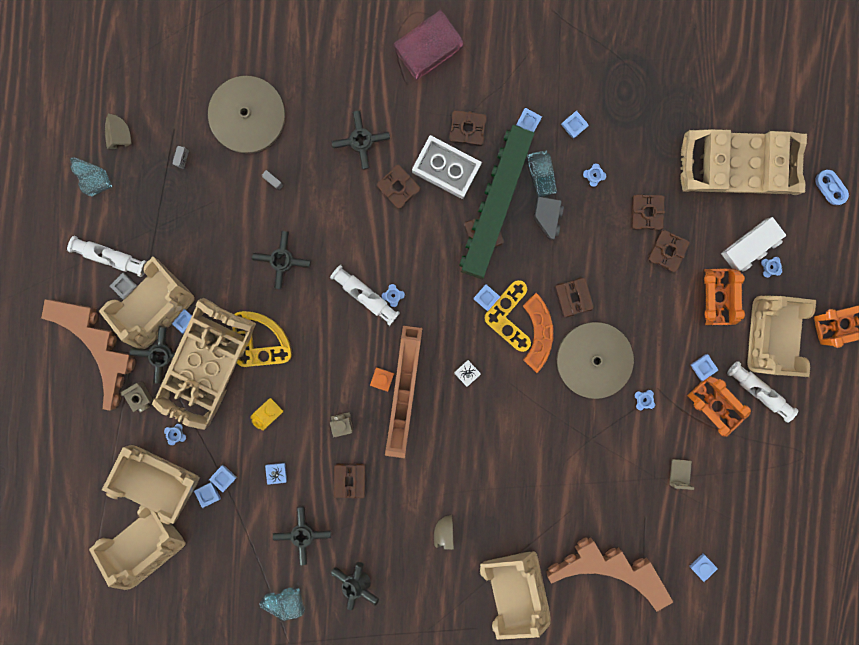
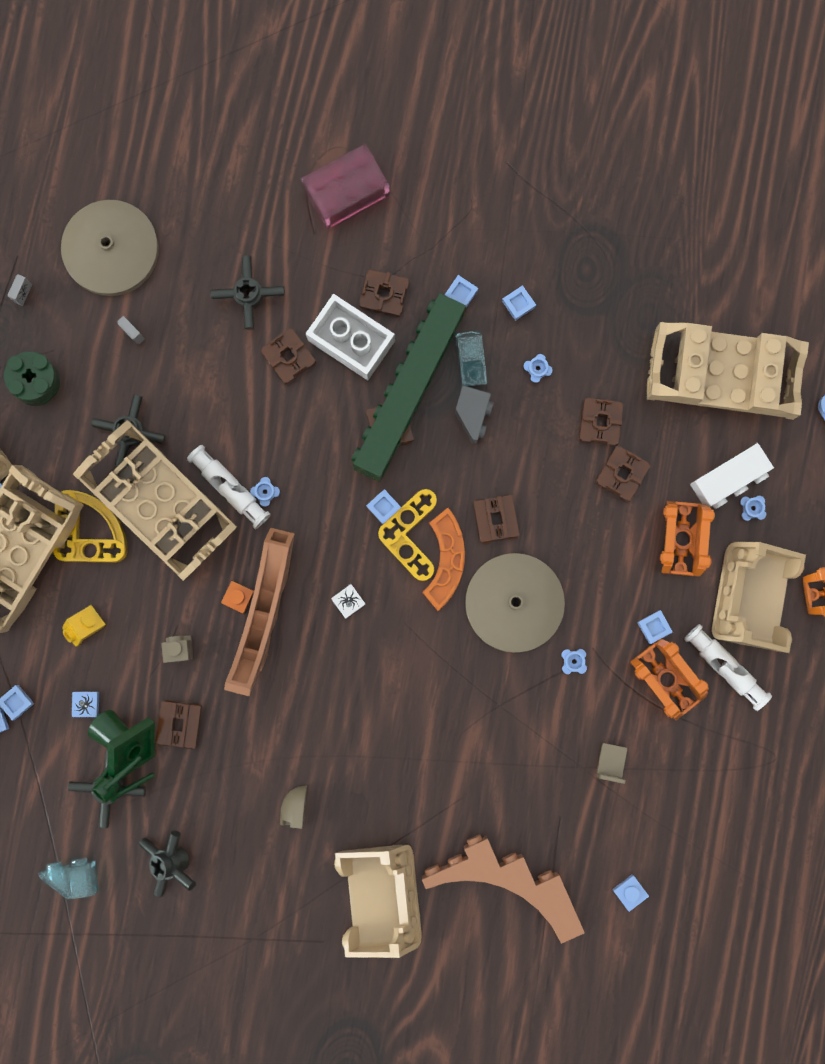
camera: 15 degrees right, 5 degrees down
(192, 219) = (22, 369): none -> dark green brick
(303, 536) = (107, 788): none -> dark green plant
(312, 314) = (154, 499): none -> tan piece
(313, 503) = (123, 743): none -> dark green plant

